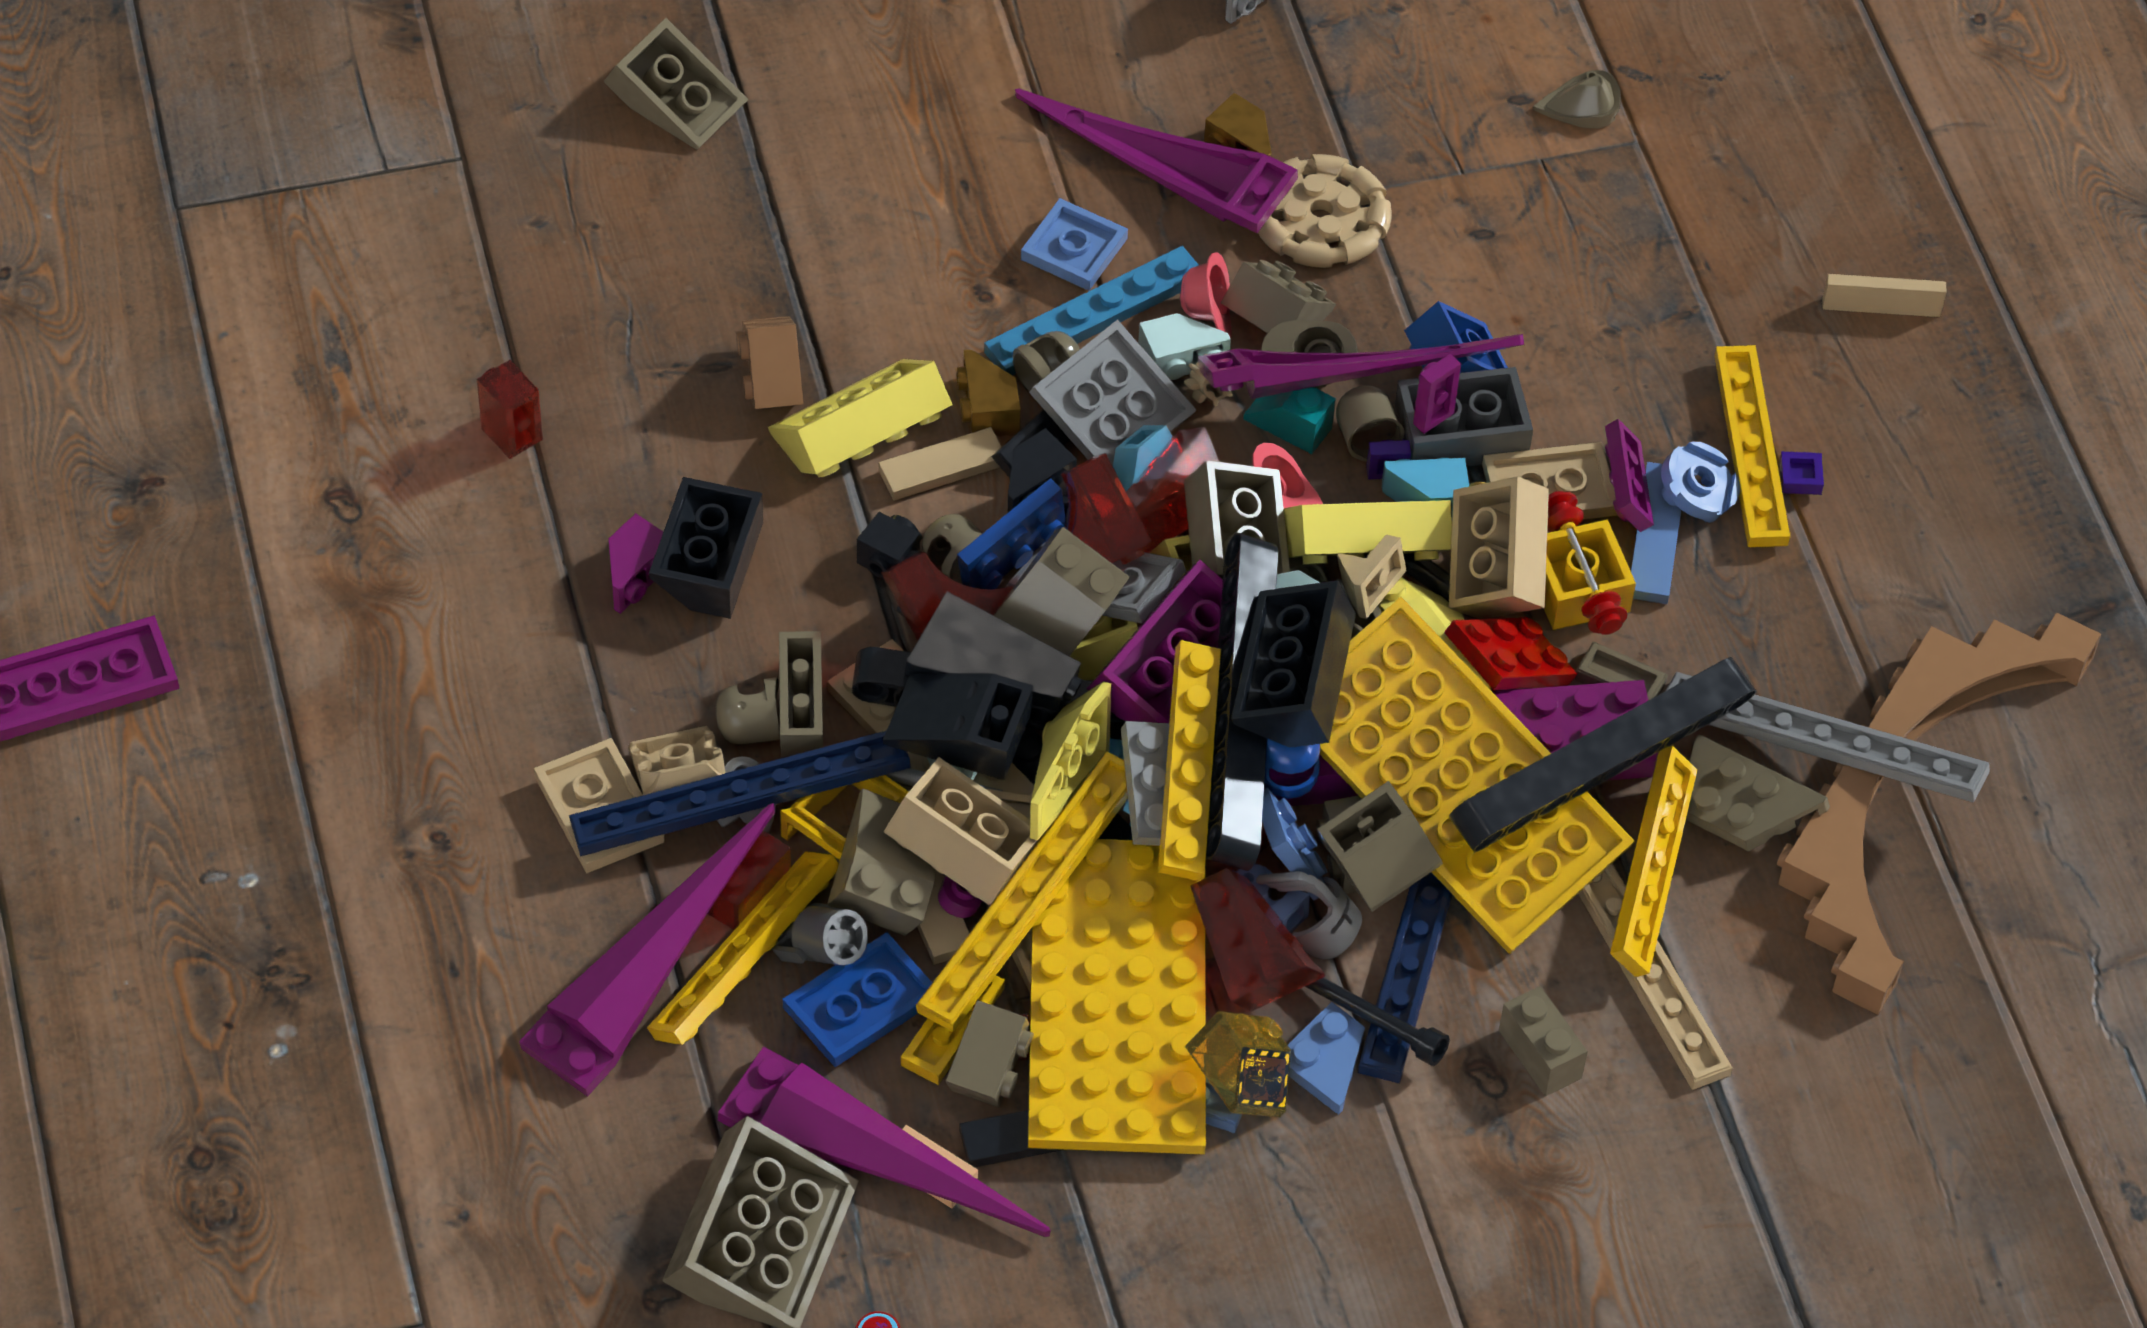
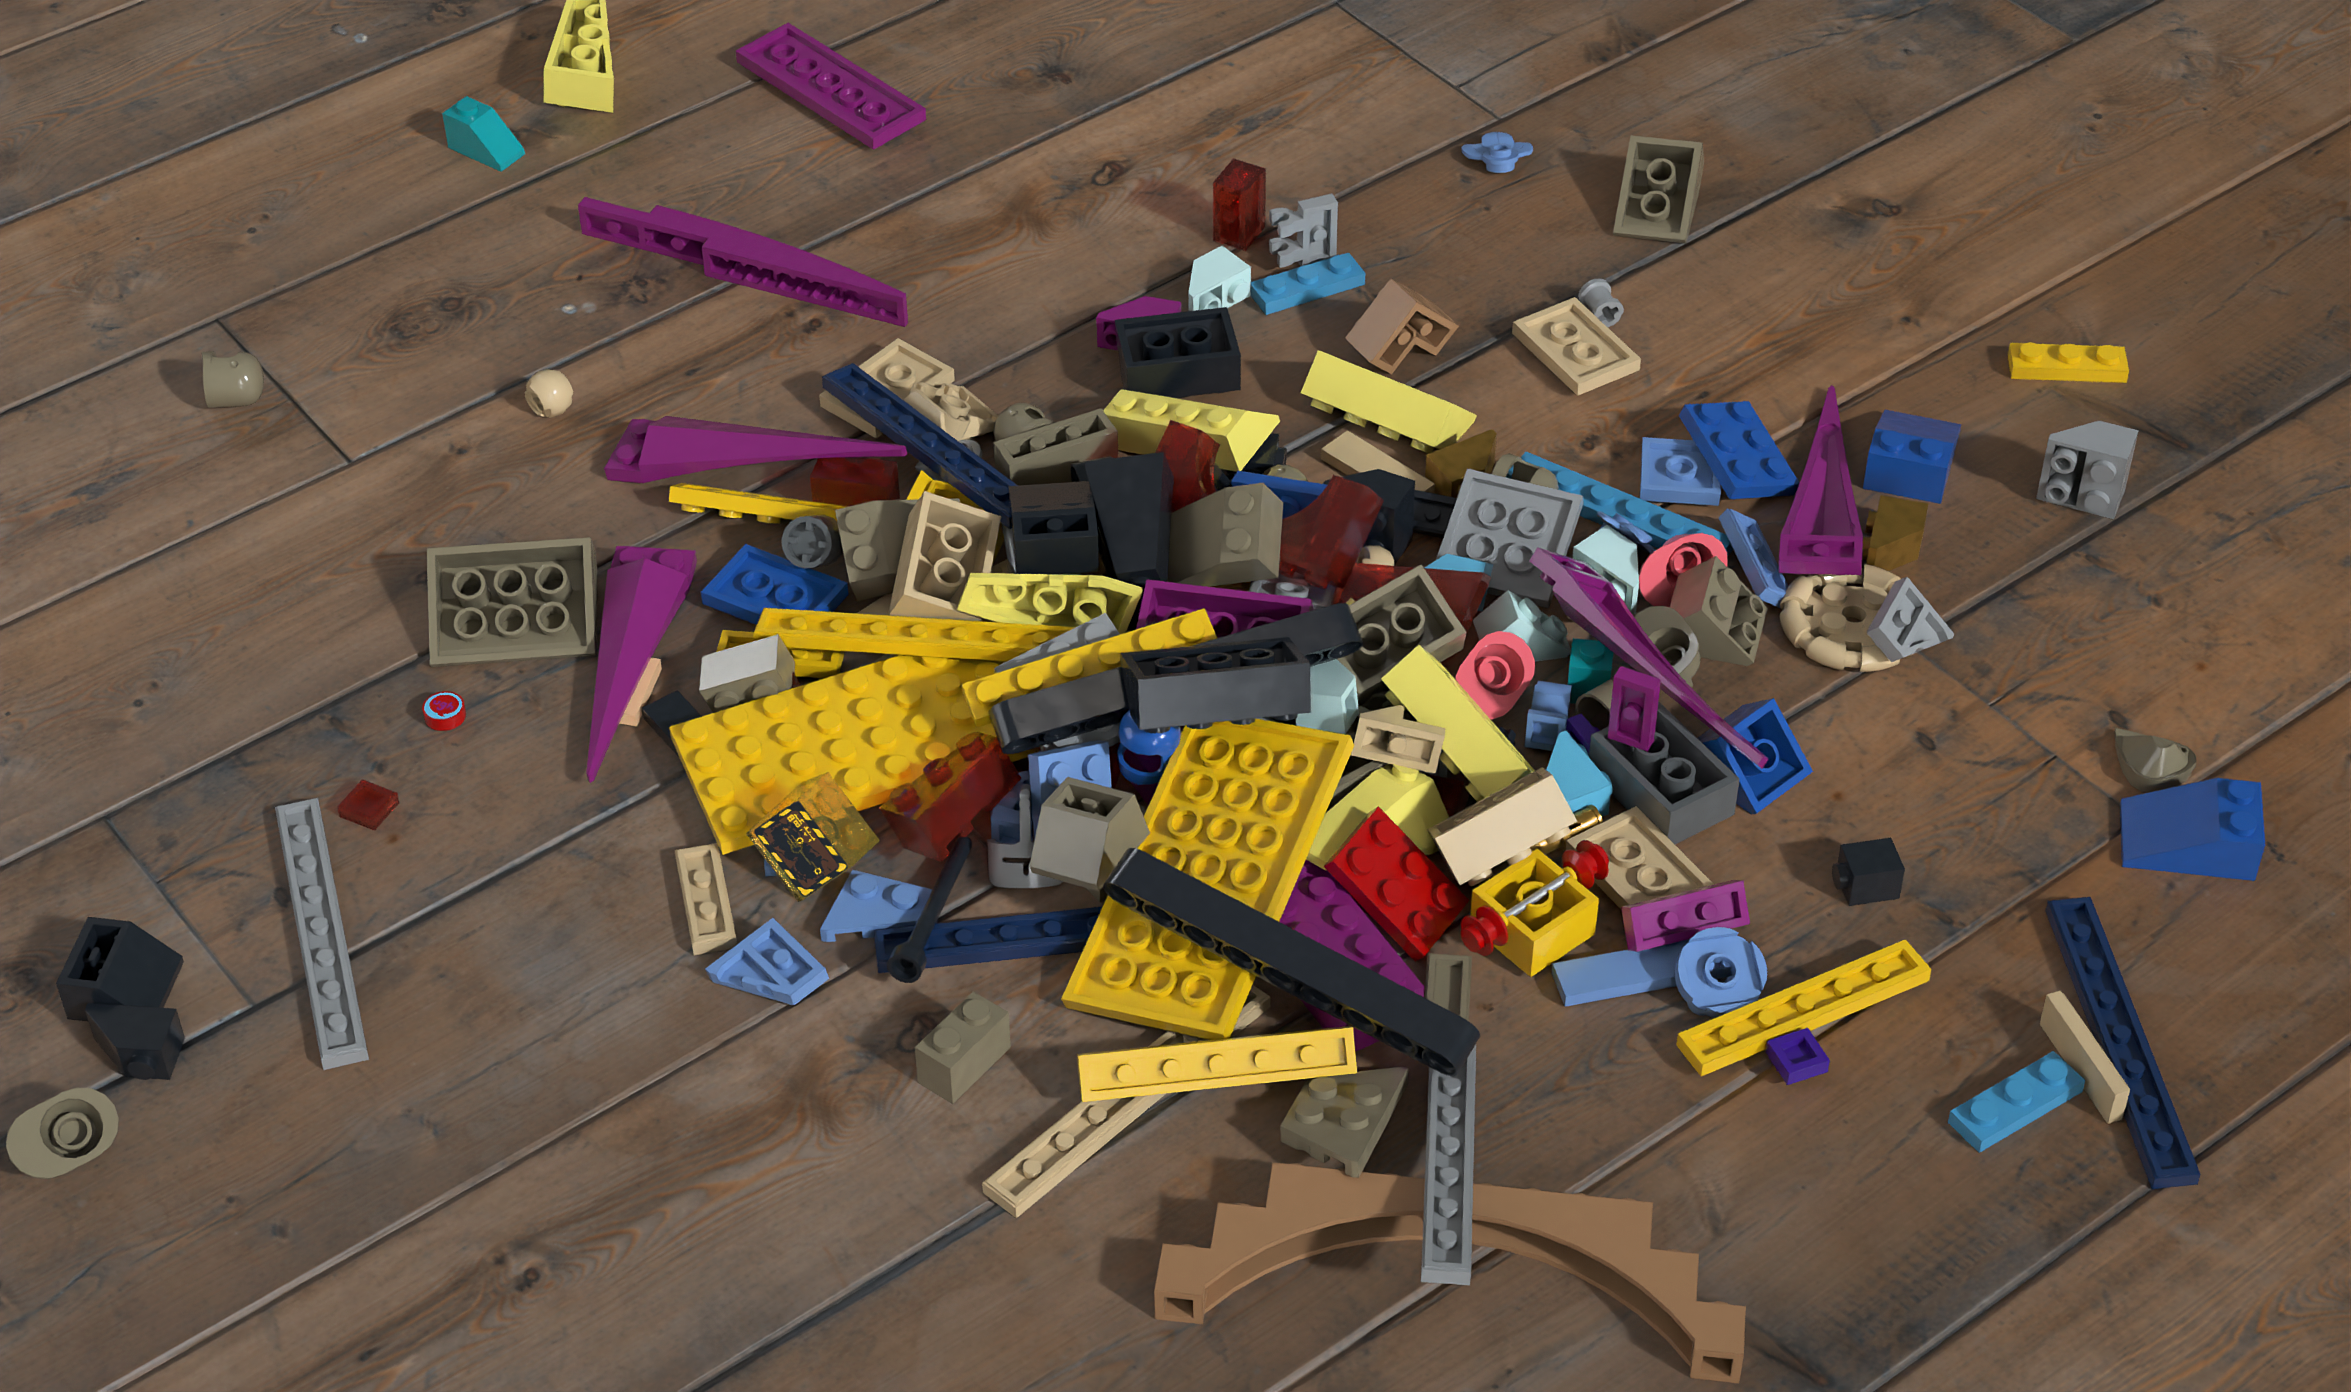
camera: 70 degrees right, 10 degrees down
(310, 861) = (744, 258): none -> magenta slope
(439, 1102) = (548, 393): none -> tan piece
(522, 180) = (1497, 151): none -> medium blue plate
(586, 374) = (1315, 229): none -> light grey plate
(600, 479) = (1218, 280): none -> light aqua slope
(632, 409) = (1307, 283): none -> dark azure plate
(809, 199) = (1598, 298): none -> light grey bush
(829, 573) = (1145, 416): none -> light yellow slope
(857, 244) = (1576, 346): none -> tan plate
(1079, 189) = (1739, 450): none -> blue plate
(1132, 317) = (1628, 530): none -> medium blue plate
(1140, 74) = (1911, 456): none -> blue slope
(1218, 241) = (1754, 556): none -> medium blue tile
(1232, 437) = (1523, 618): none -> light aqua slope
(1248, 1187) = (705, 899): none -> tan tile
(1332, 464) = (1547, 714): none -> medium blue leg
(1363, 169) = (1907, 623): none -> light grey wing
(1367, 1158) = (769, 966): none -> medium blue wing
(1629, 335) = (1869, 871): none -> black brick
(1680, 110) = (2196, 829): none -> blue slope
(1829, 256) = (2121, 1036): none -> dark blue tile
(1900, 360) = (2016, 1101): none -> dark azure plate

